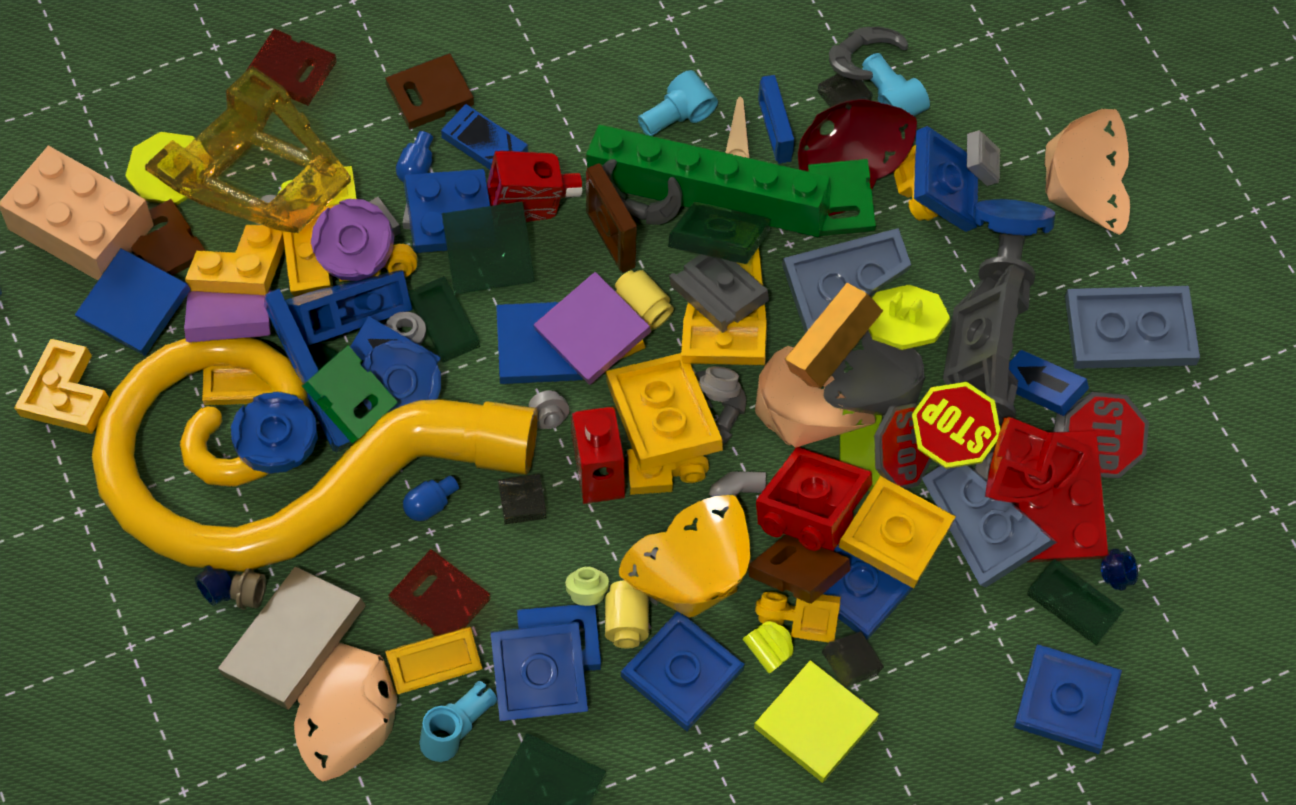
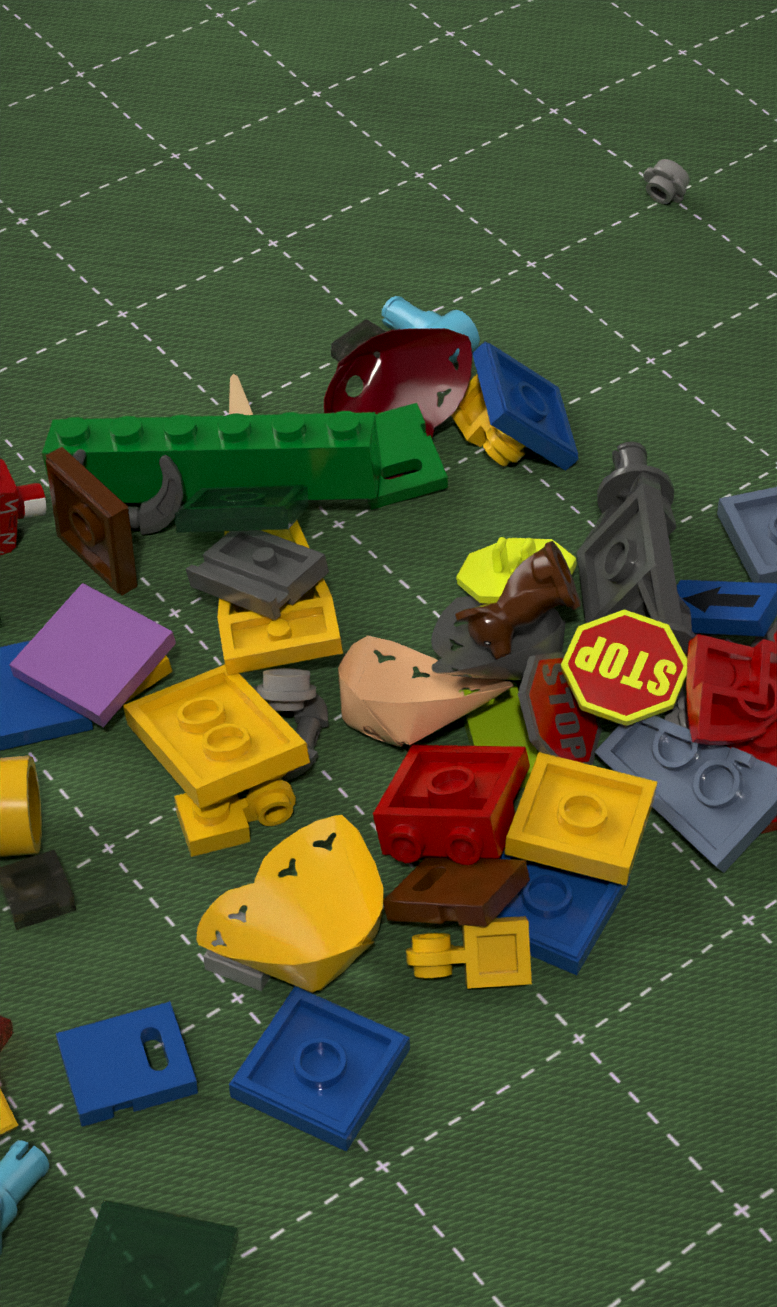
camera: 10 degrees left, 15 degrees down
(539, 671) = (105, 1105): blue plate -> none
(551, 409) = (59, 756): light grey plate -> none
(587, 586) = (154, 979): yellowish green plate -> none
(597, 446) = (122, 781): red torso -> none
(626, 615) = (220, 1004): light yellow brick -> none
(644, 297) = (161, 606): light yellow brick -> none
(685, 98) = (161, 386): medium azure pin -> none
(738, 482) = (351, 804): light grey arm -> none
(770, 645) = (441, 1001): neon yellow plate -> none
(775, 119) = (282, 378): blue tile -> none
(816, 721) = (535, 1094): neon yellow tile -> none
(833, 336) = (425, 604): pearl gold piece -> none
(841, 54) = (353, 308): dark grey piece -> none
(852, 659) = (565, 998): clear smoke tile -> none
(862, 262) = (419, 540): sand blue wing -> none
(908, 345) = (530, 592): none -> reddish brown animal
(983, 158) = (565, 381): light grey tile -> none
(1014, 216) = (625, 430): blue tile -> none
(1082, 176) = (688, 376): light nougat piece -> none

